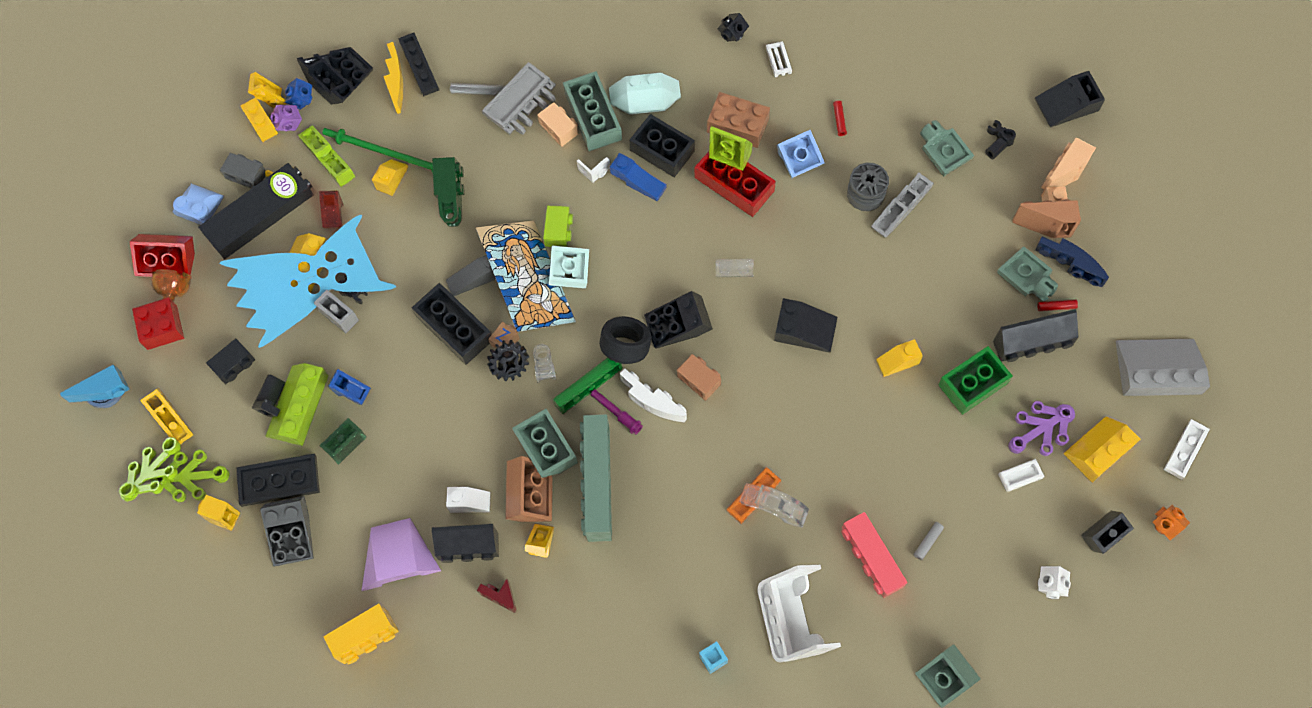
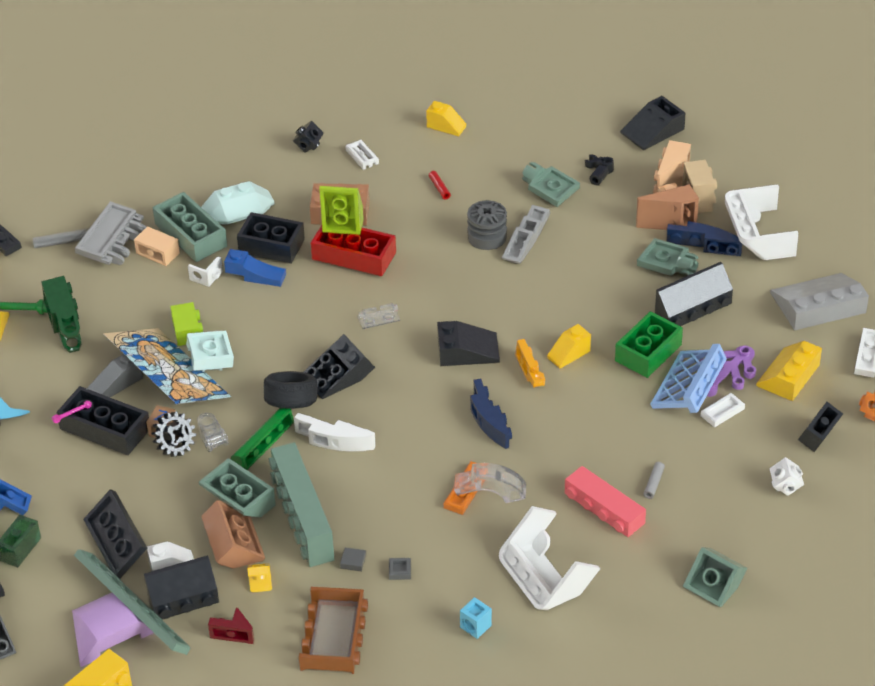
camera: 20 degrees left, 25 degrees down
(407, 317) = (56, 418): none -> dark pink hinge
(420, 542) = (133, 602): none -> sand green tile
(427, 459) = (115, 533): none -> black plate
(586, 626) = (333, 629): none -> window
(623, 417) = (311, 457): magenta pin -> none
(627, 547) = (353, 559): none -> dark grey tile
(665, 571) = (399, 568): none -> dark grey tile
(699, 377) = (375, 406): nougat brick -> none
(799, 424) = (488, 416): none -> dark blue slope
(800, 153) = (410, 215): light blue slope -> none
(854, 369) = (528, 364): none -> light orange hinge
(869, 37) = (444, 119): none -> yellow slope
(1015, 439) = (700, 382): none -> light blue fence
(1089, 192) = (701, 180): none -> tan brick
(1124, 236) = (745, 209): none -> white windscreen

